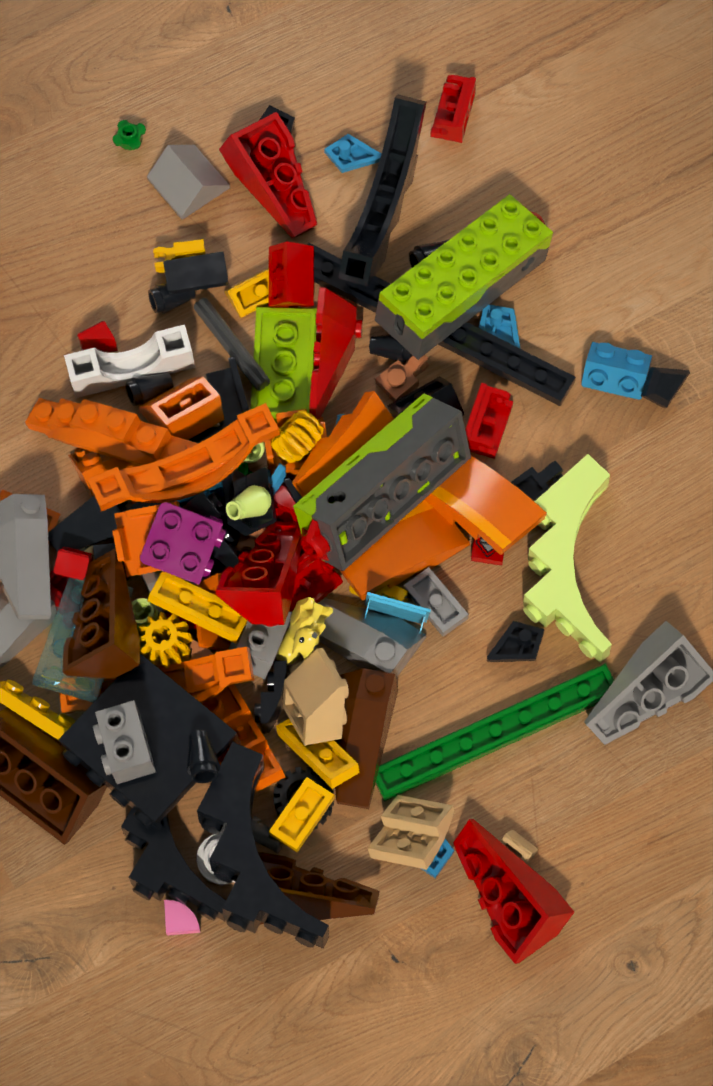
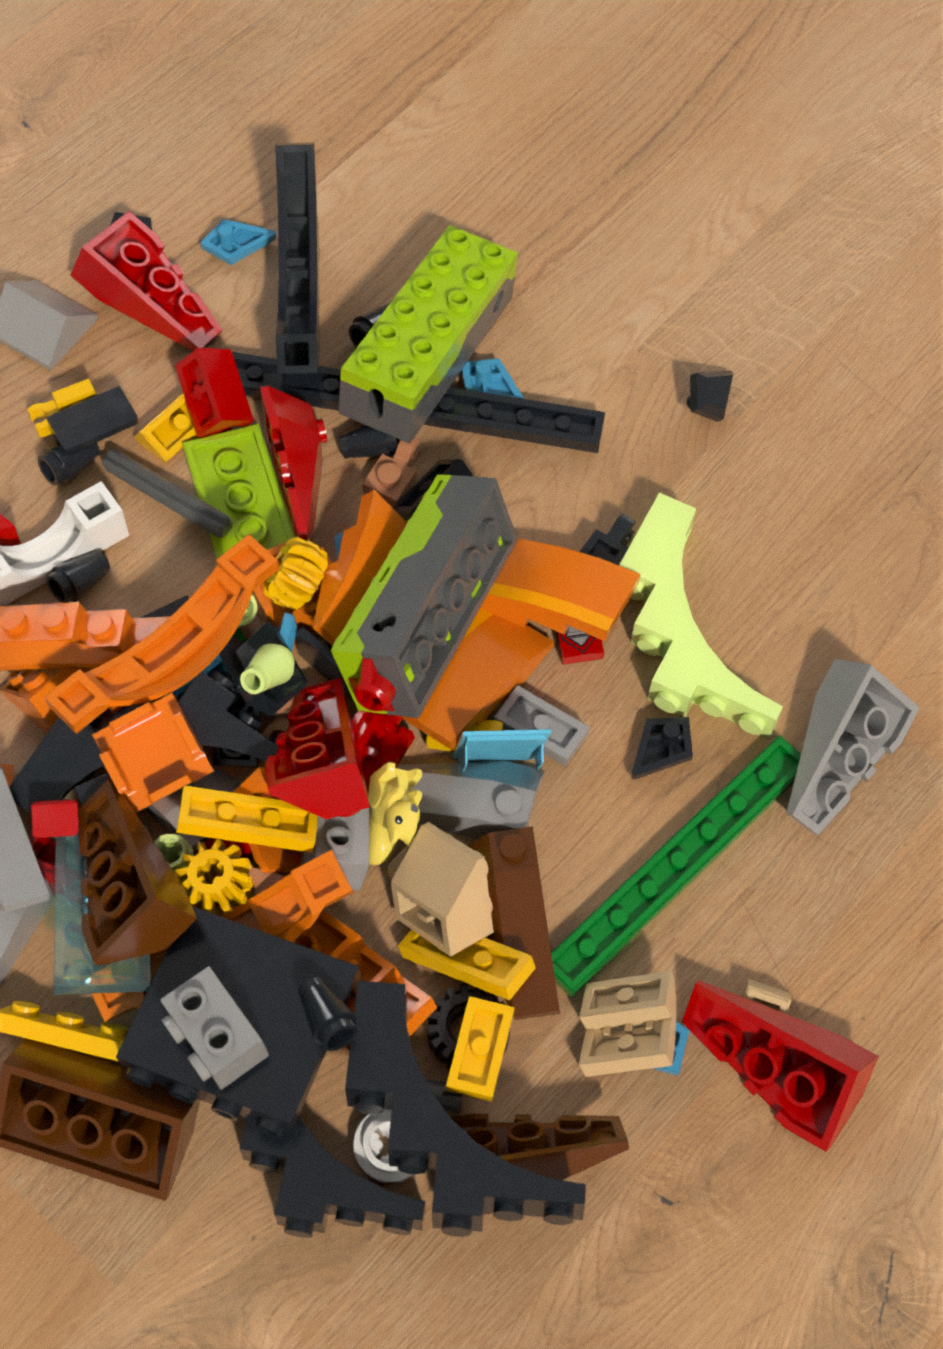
camera: 25 degrees left, 5 degrees down
(179, 919) = (361, 1248): bright pink tile -> none
(182, 542) = (198, 741): magenta bracket -> none
(185, 408) = (140, 580): orange slope -> none
(230, 388) = (183, 552): black panel -> none
(272, 702) = (379, 915): black slope -> none
(284, 505) = (313, 665): red slope -> none
(454, 108) = (339, 160): red hinge -> none
(488, 420) = (521, 490): red hinge -> none
(616, 370) = (649, 393): dark azure bracket -> none

